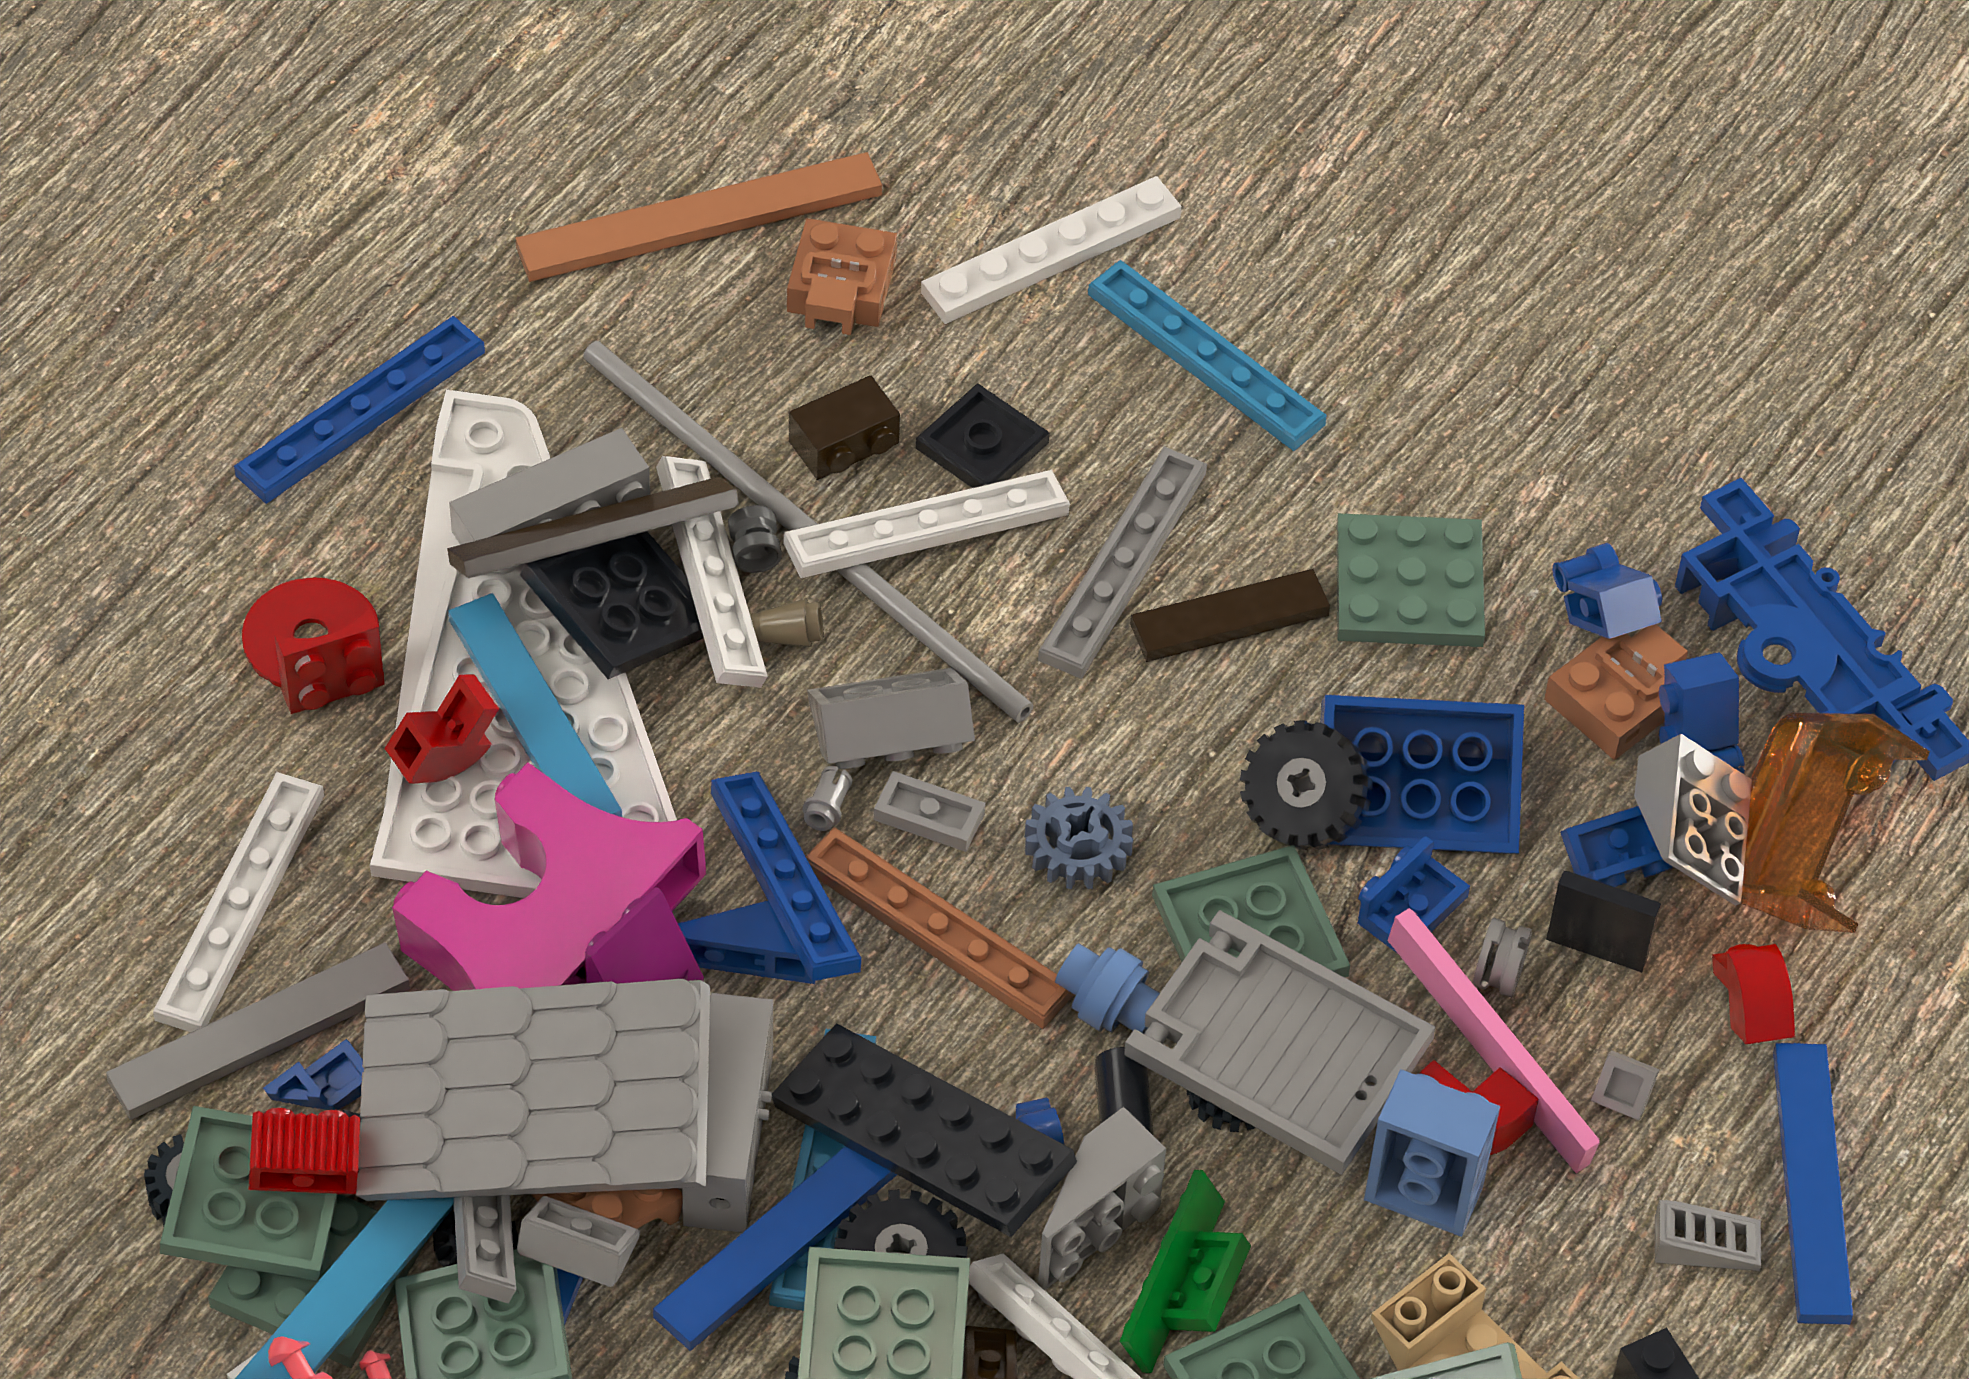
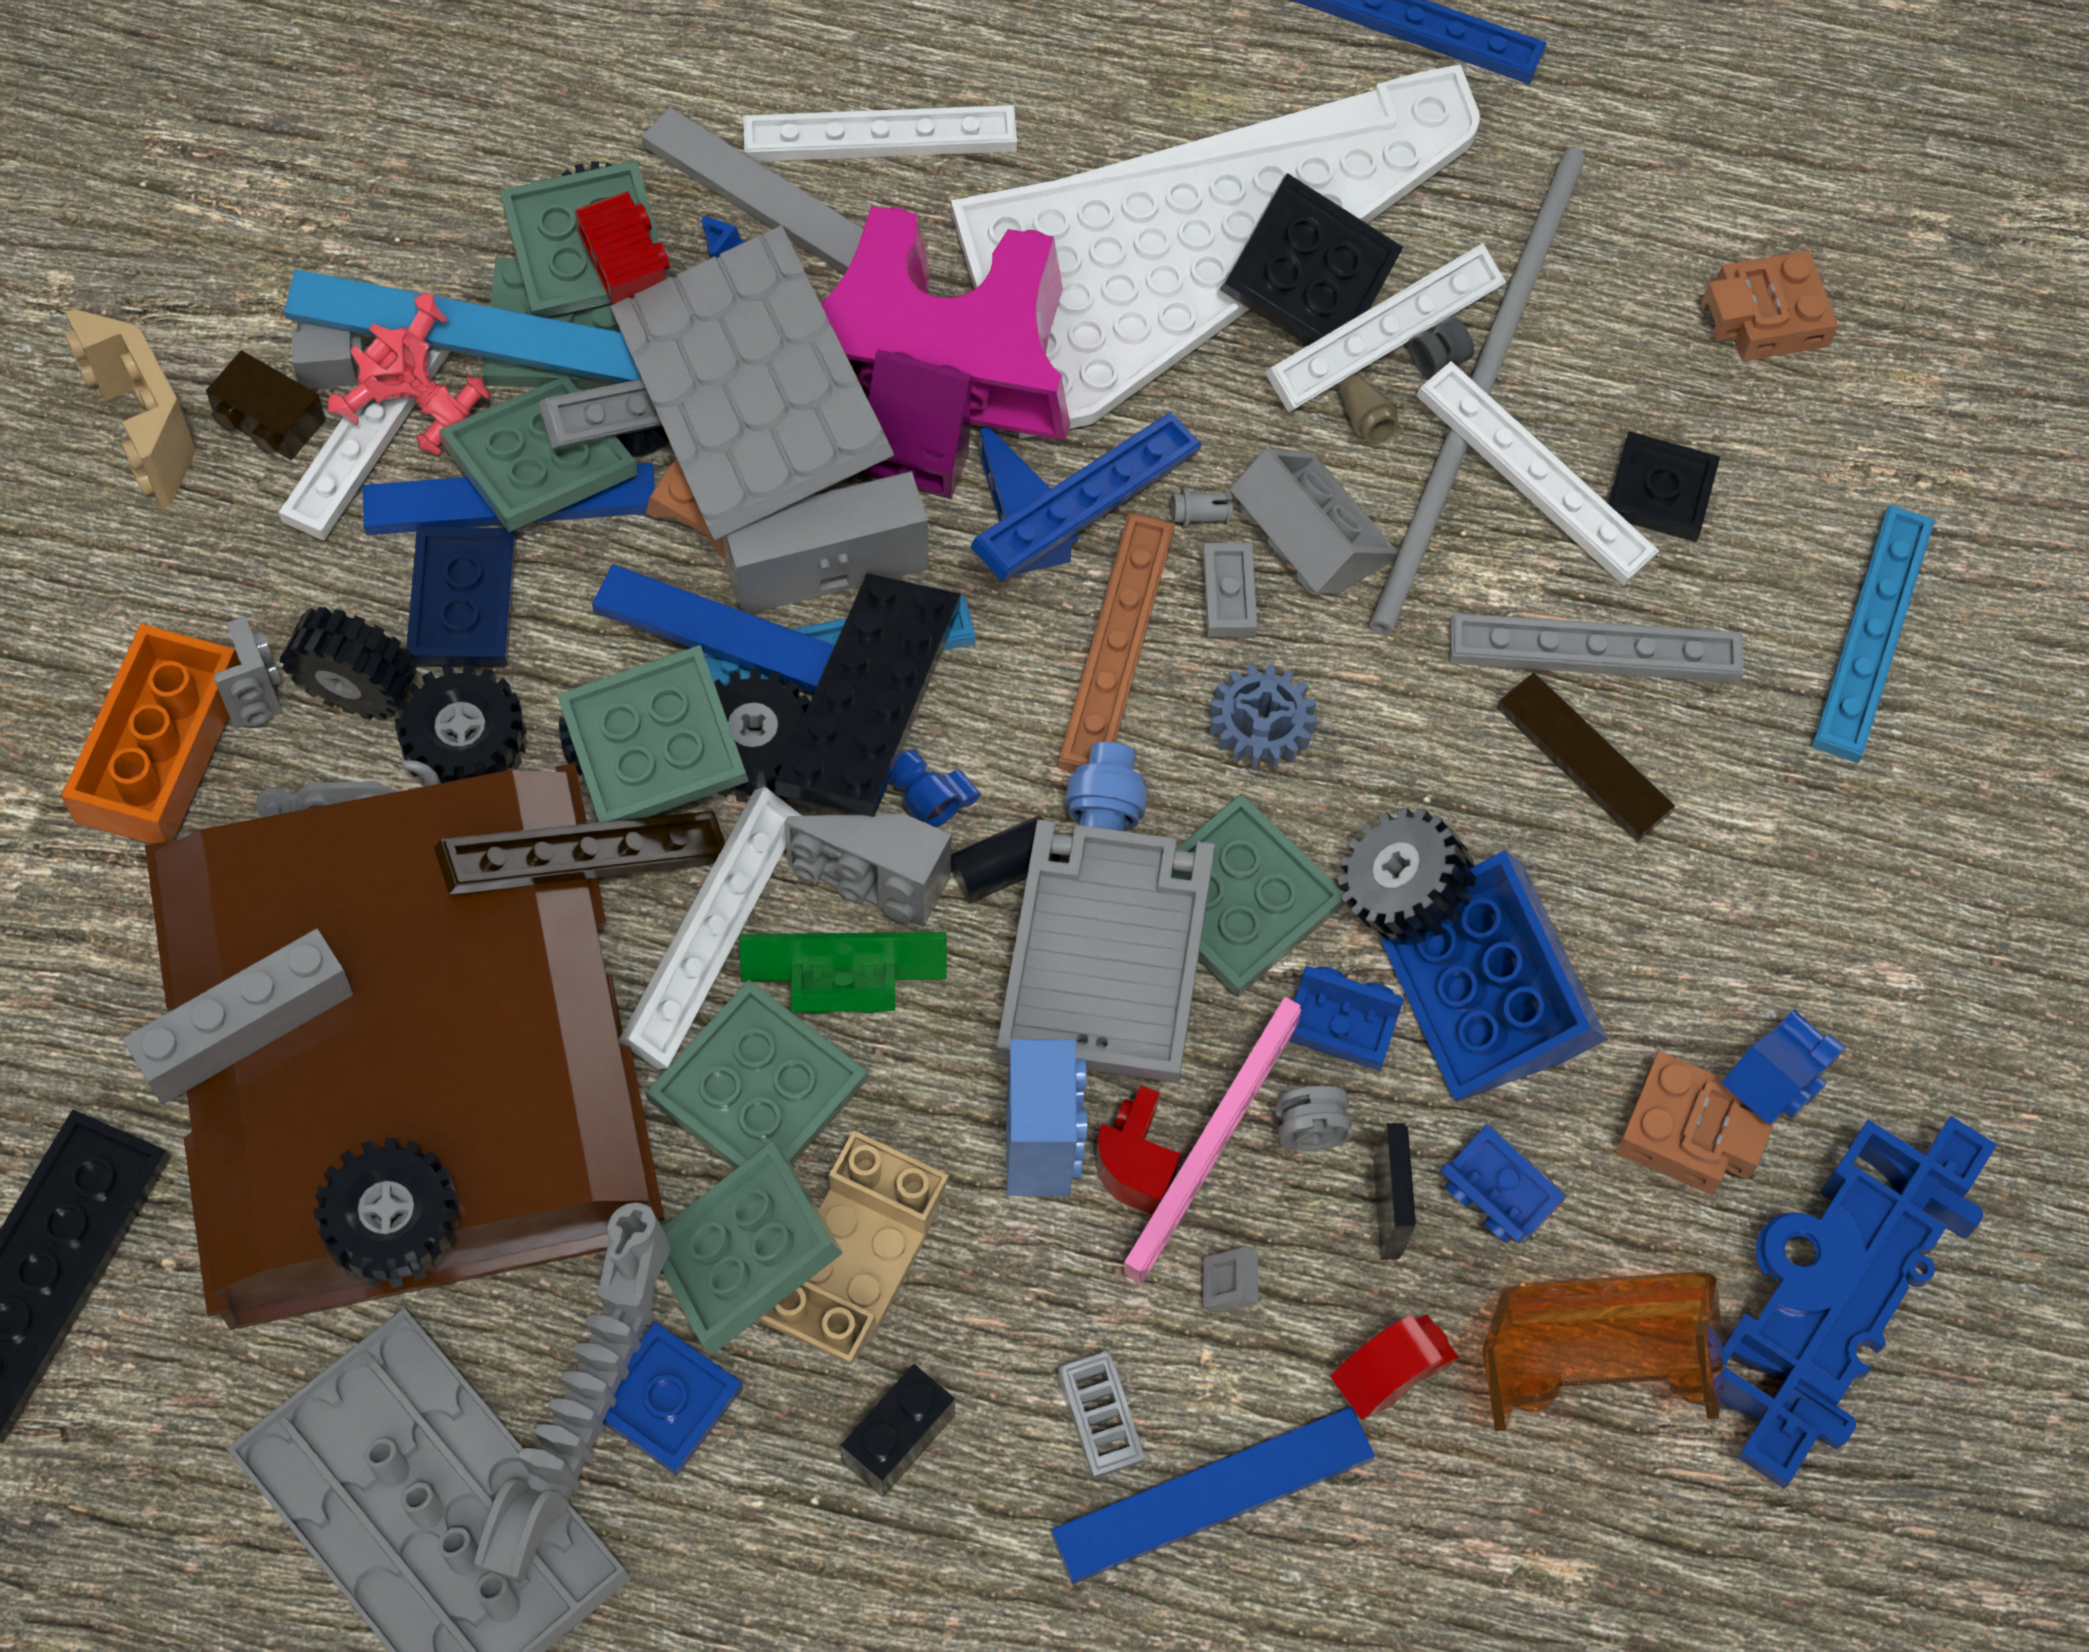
camera: 65 degrees right, 10 degrees up
(316, 667) = (1144, 104): red piece -> none
(444, 741) = (1084, 192): red brick -> none
(528, 701) = (1156, 254): dark azure tile -> none
(562, 486) = (1378, 174): light grey brick -> none
(576, 1241) = (639, 476): light grey slope -> none
(592, 527) = (1359, 211): dark brown tile -> none
(698, 216) = (1774, 180): nougat tile -> none
(844, 427) = (1602, 369): dark brown brick -> none
(1050, 249) = (1914, 462): white plate -> none
(1410, 580) = (1716, 896): sand green plate -> none
(1696, 813) = (1550, 1236): light grey slope -> none
(1703, 705) = (1680, 1204): blue hinge -> none

